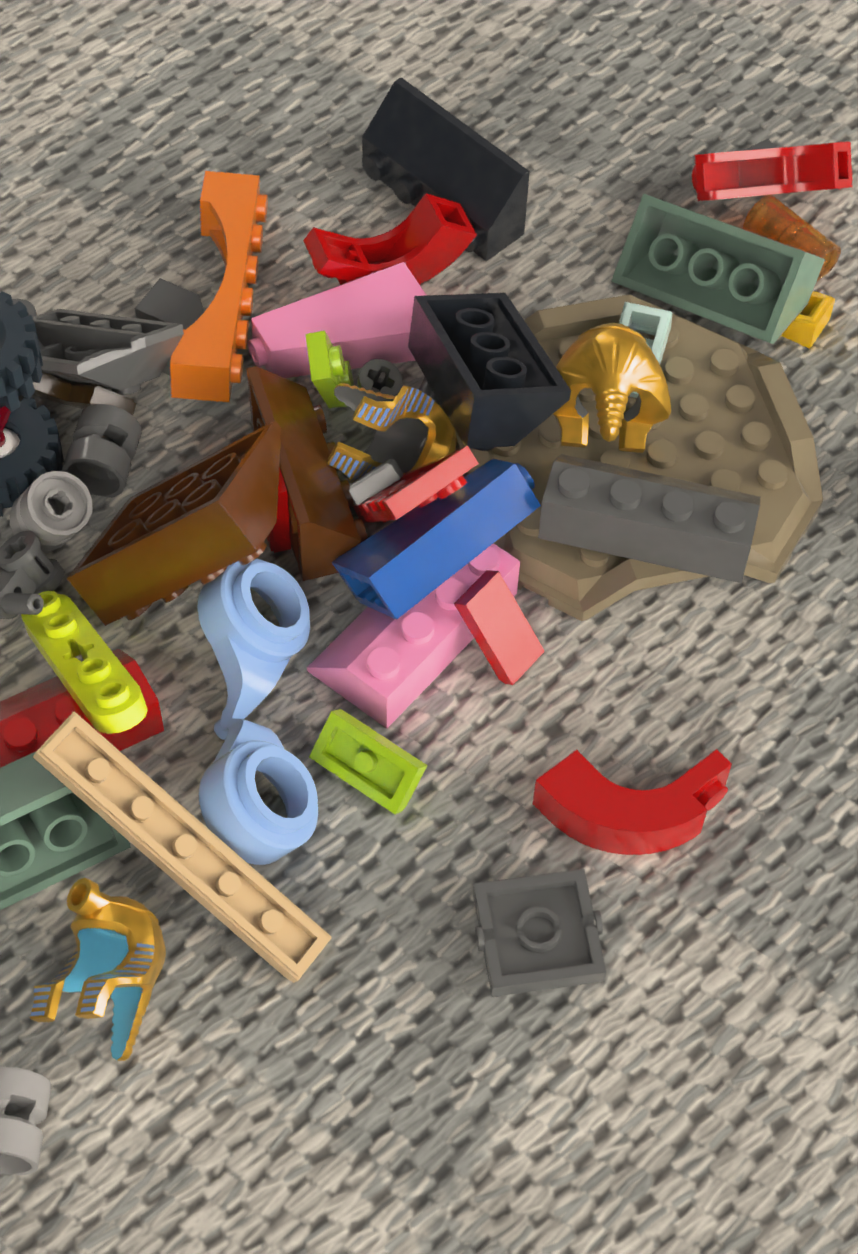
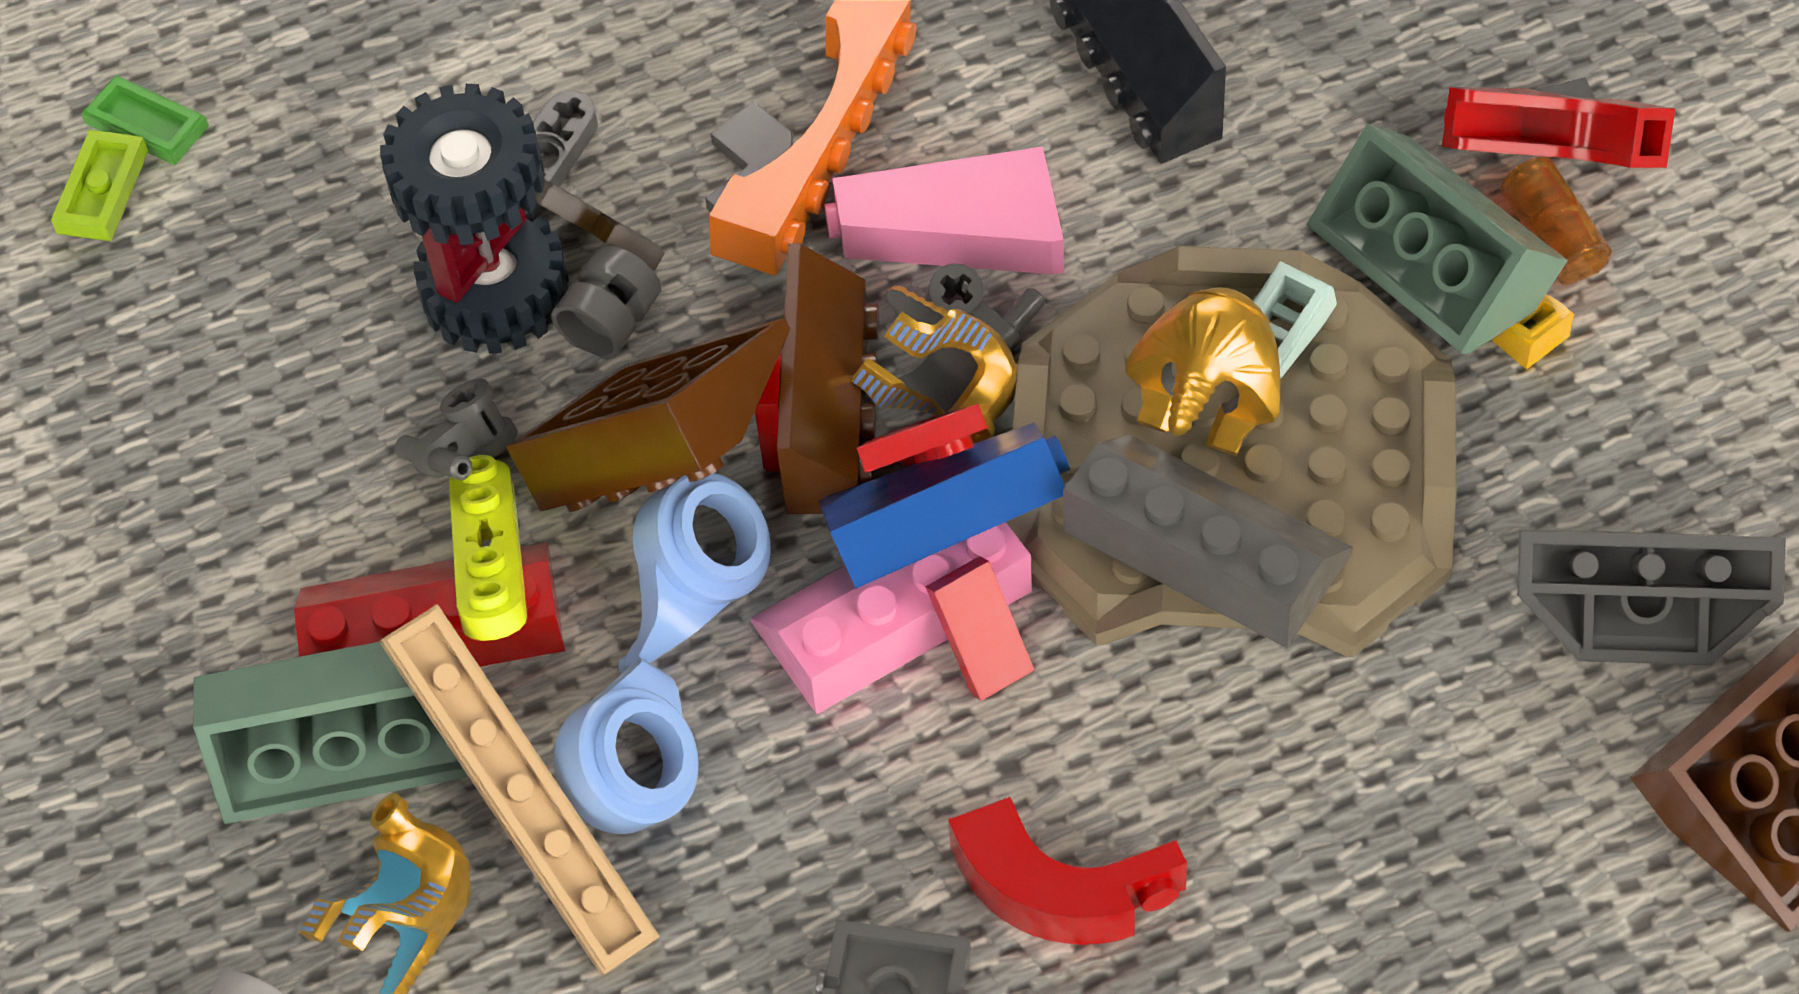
camera: 25 degrees right, 0 degrees up
(52, 508) = (520, 361): light grey wheel -> none
(105, 348) = (634, 176): dark grey wedge -> none
(327, 367) = (894, 259): lime plate -> none
(367, 761) = (773, 746): lime plate -> none
(375, 481) = (903, 414): tile -> none
(425, 241) = (1075, 128): red arch -> none
(484, 367) = (1074, 304): black slope -> none

